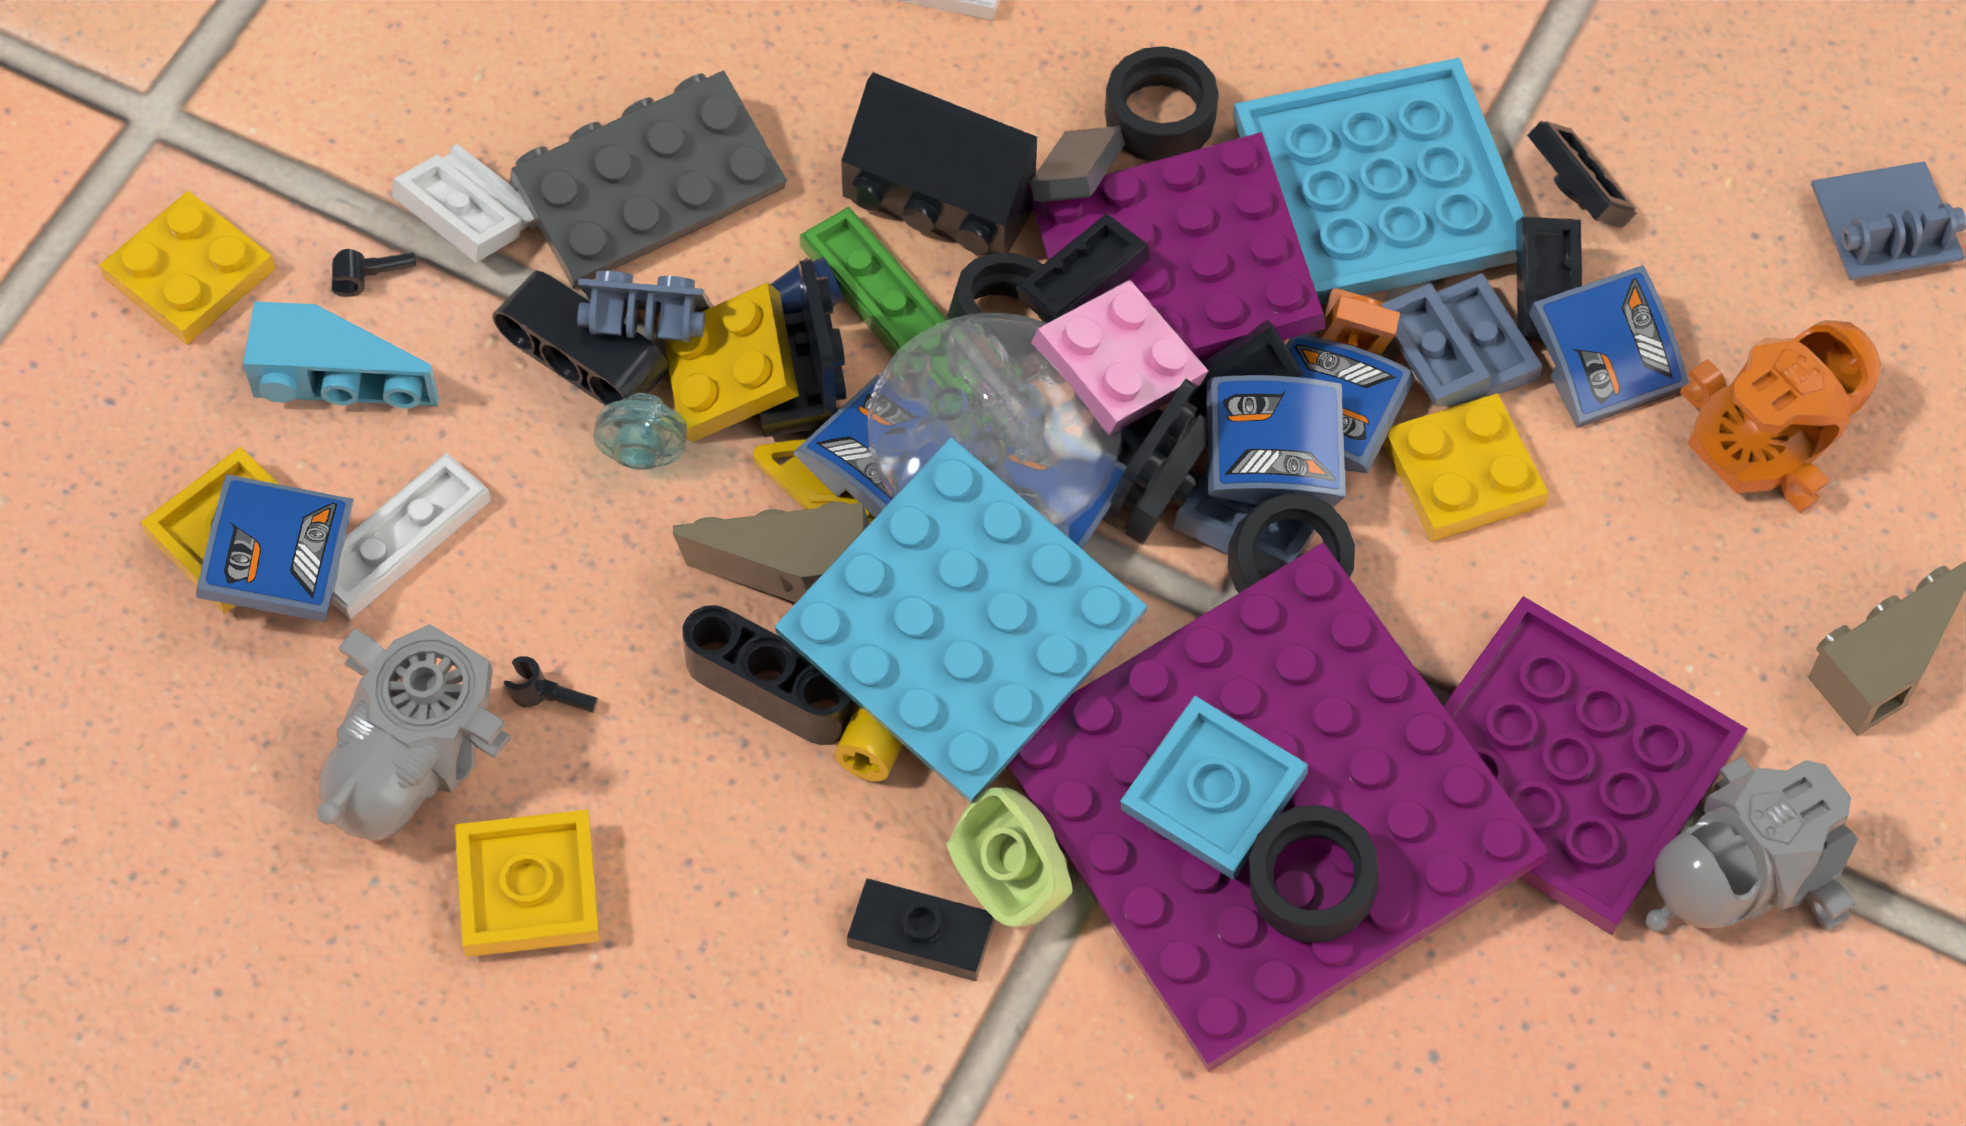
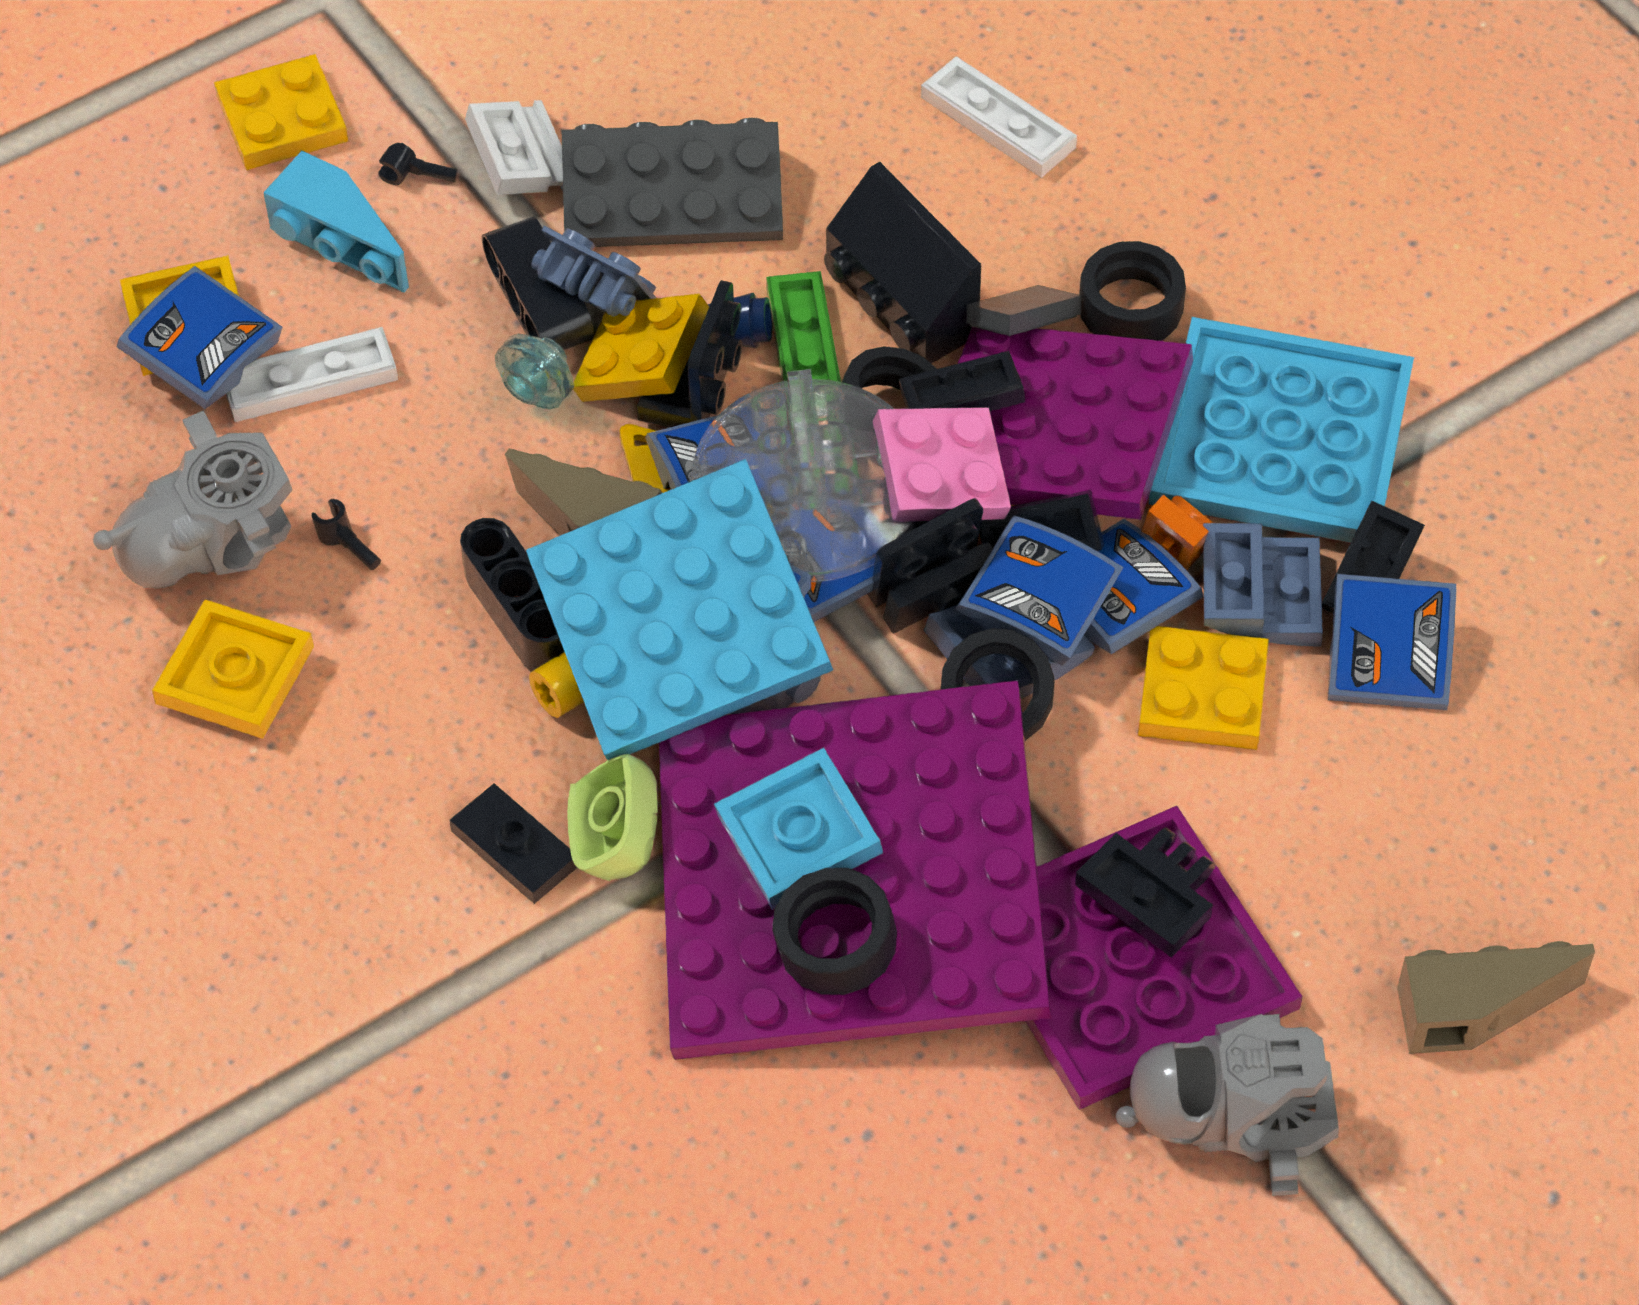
camera: 30 degrees right, 5 degrees down
(1560, 691) = (1150, 888): none -> black hinge
(1581, 174) = (1462, 495): black plate -> none
(1782, 409) = (1530, 737): orange helmet -> none

